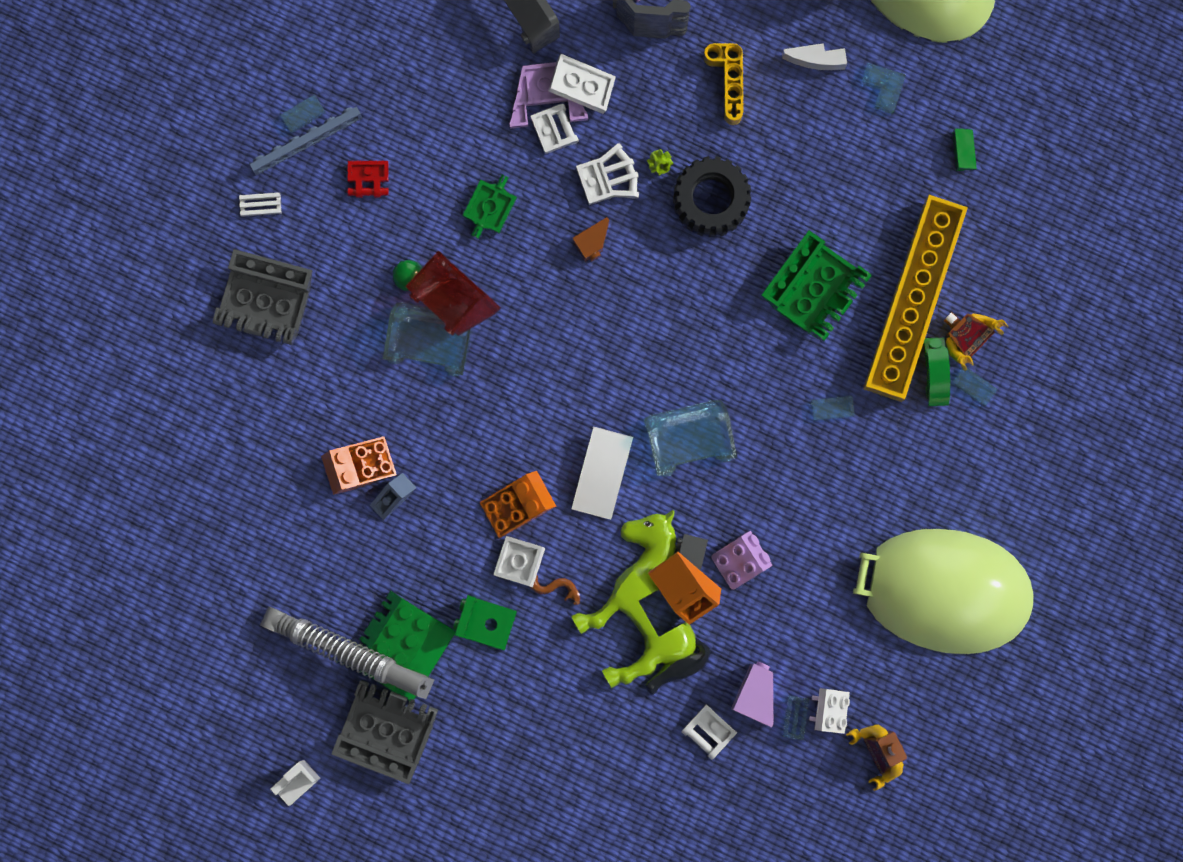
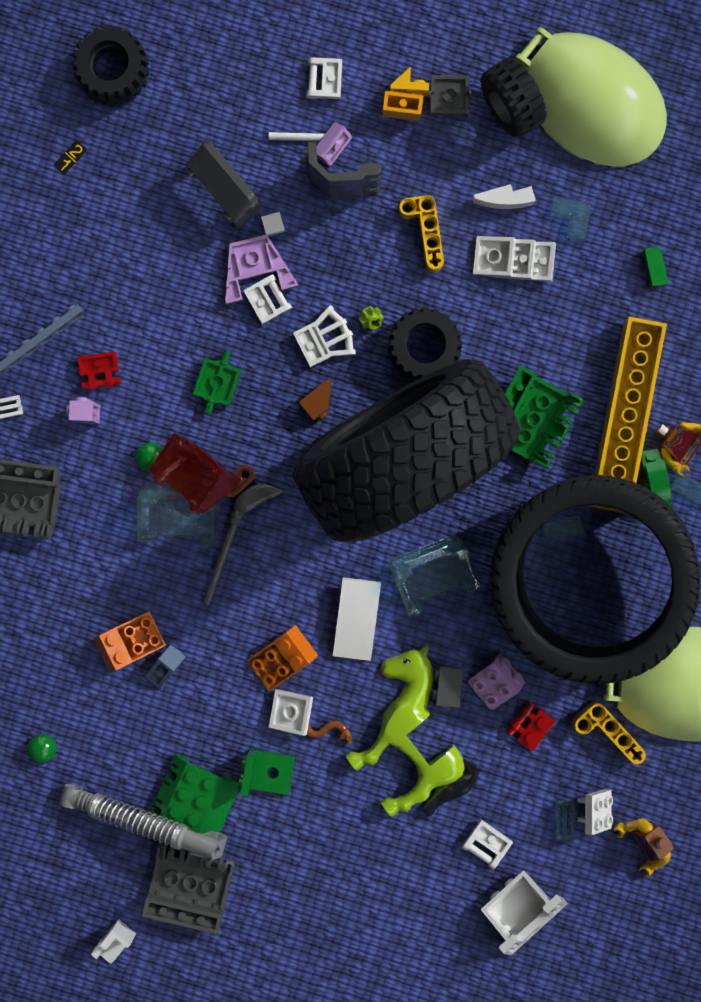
camera: 10 degrees left, 5 degrees up
(249, 565) = (42, 748): none -> green hair
(303, 113) = (29, 317): clear light blue tile -> none
(346, 217) = (83, 411): none -> lavender brick
(500, 336) = (244, 503): none -> dark grey piece
(501, 314) = (244, 482): none -> copper plate
(571, 49) = (273, 224): none -> white tile
(582, 83) = (287, 253): white plate -> none
(677, 292) = (407, 452): none -> black tyre
(685, 588) = (449, 718): orange slope -> none
(737, 808) = (520, 911): none -> white windscreen
(756, 694) = (526, 807): lavender slope -> none
(772, 426) = (581, 661): none -> black tyre
(778, 615) = (535, 729): none -> red plate
(817, 121) = (514, 258): none -> white slope
(857, 633) = (613, 734): none -> yellow beam

